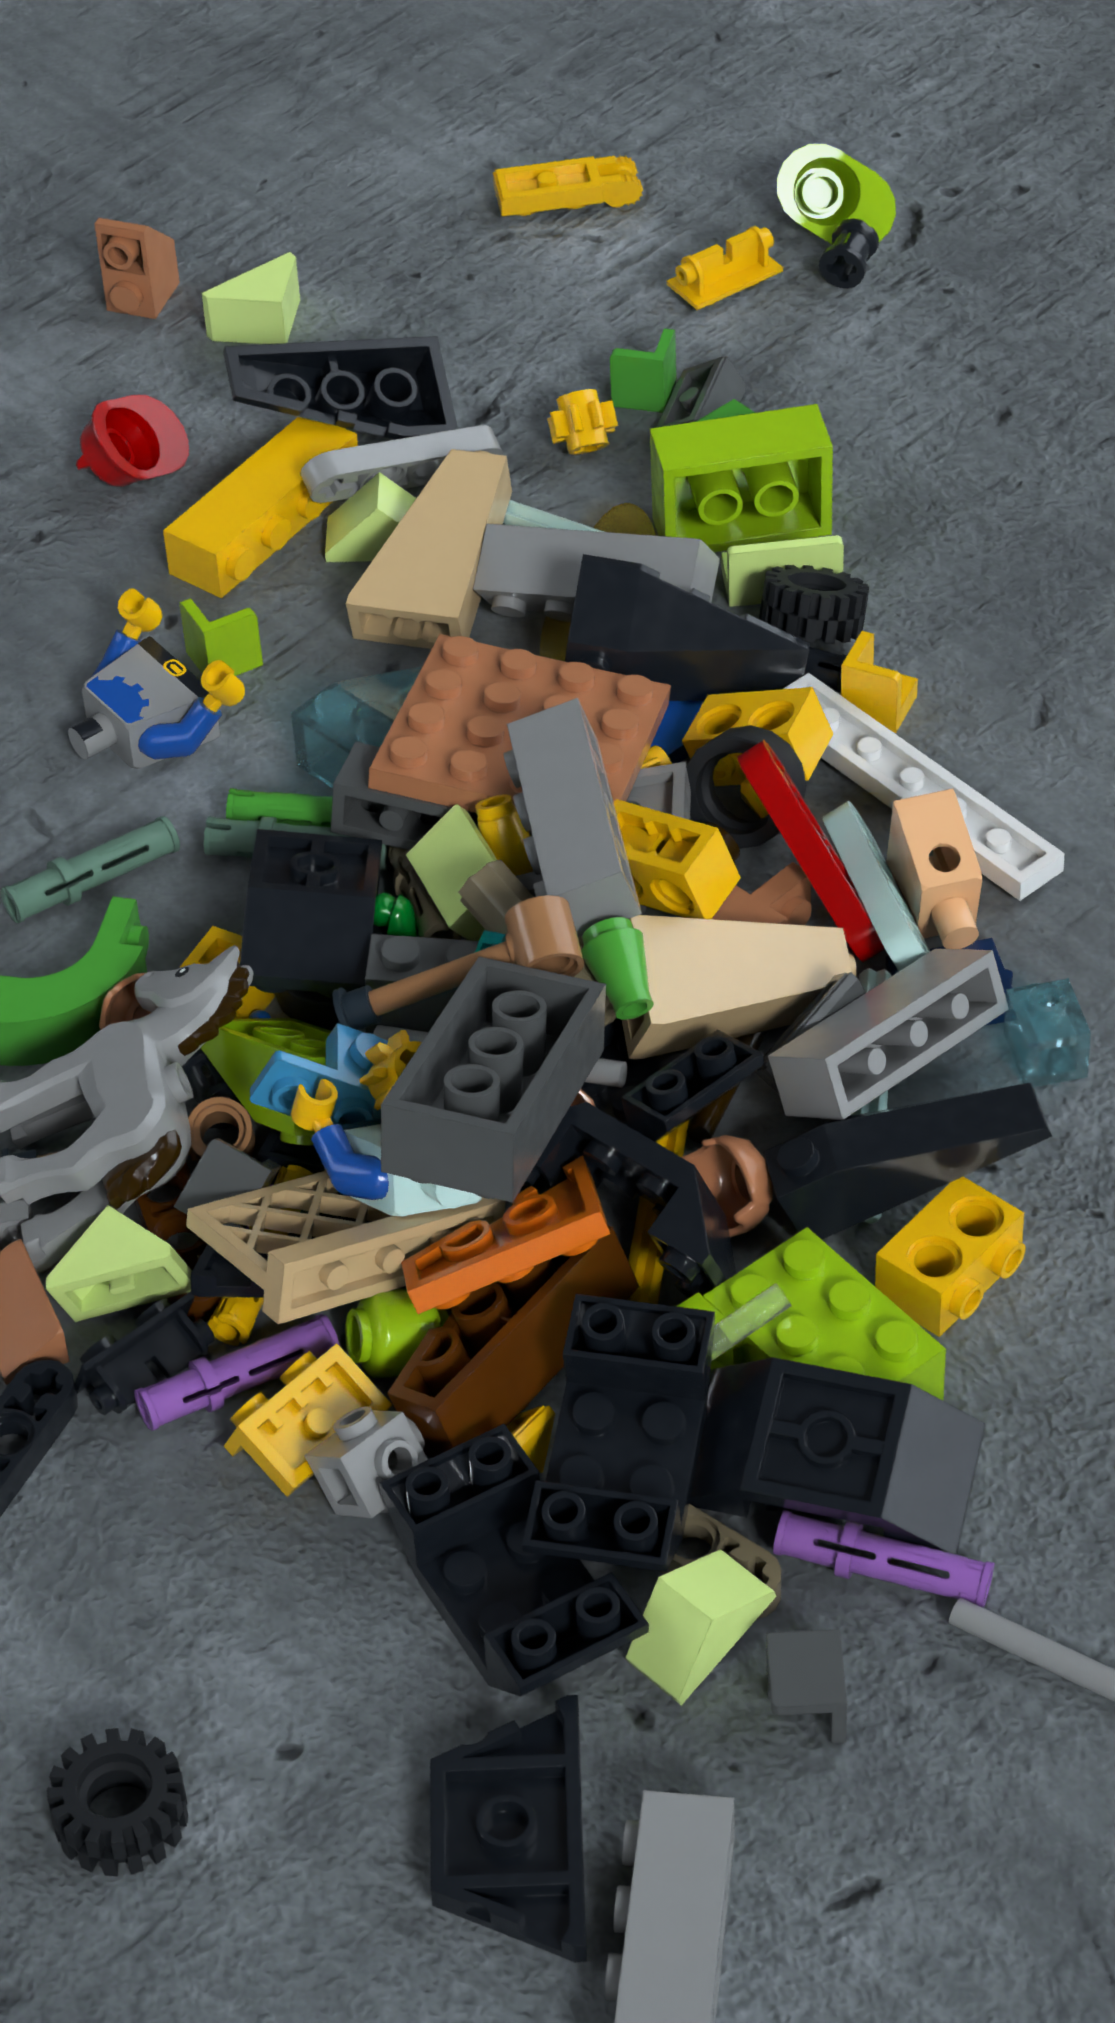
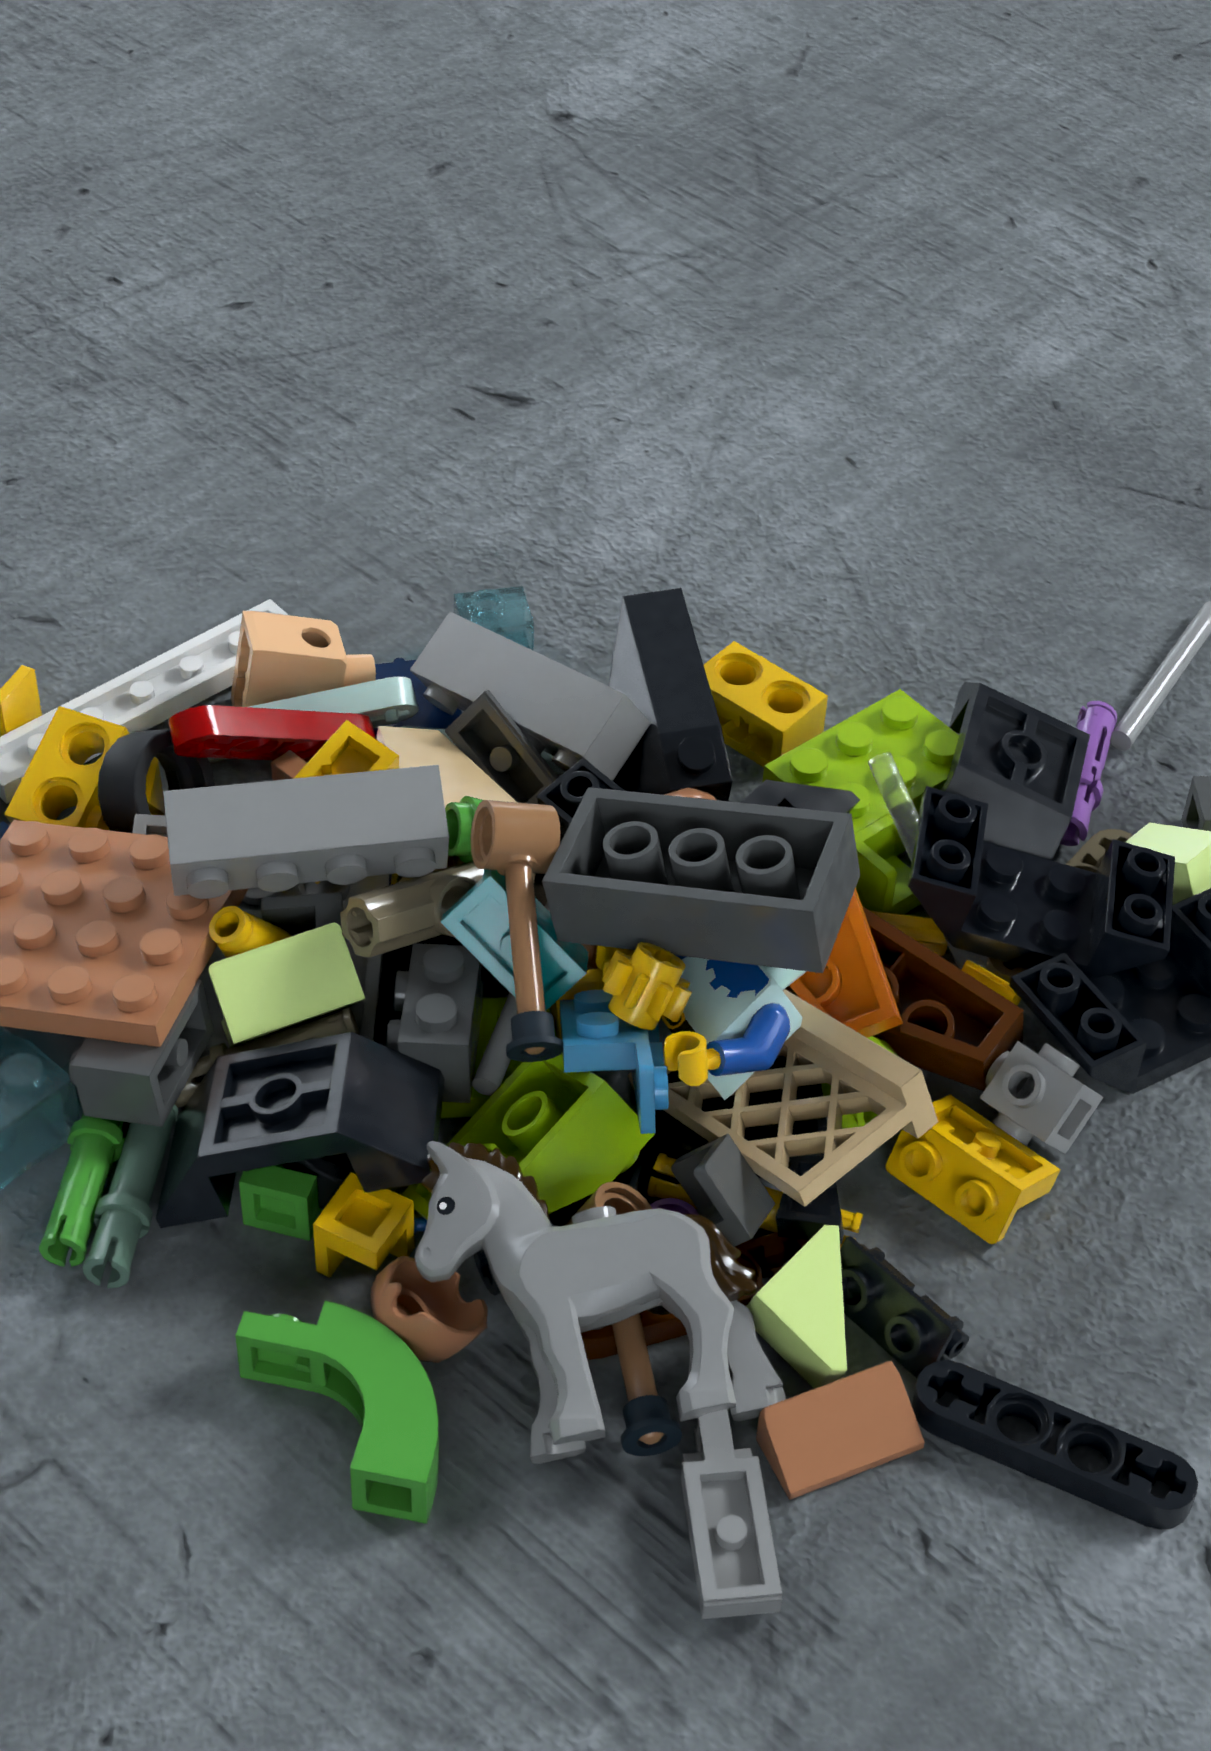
camera: 95 degrees left, 0 degrees up
(68, 879) = (152, 1415): sand green pin -> none
(213, 1381) = (929, 1244): medium lavender pin -> none

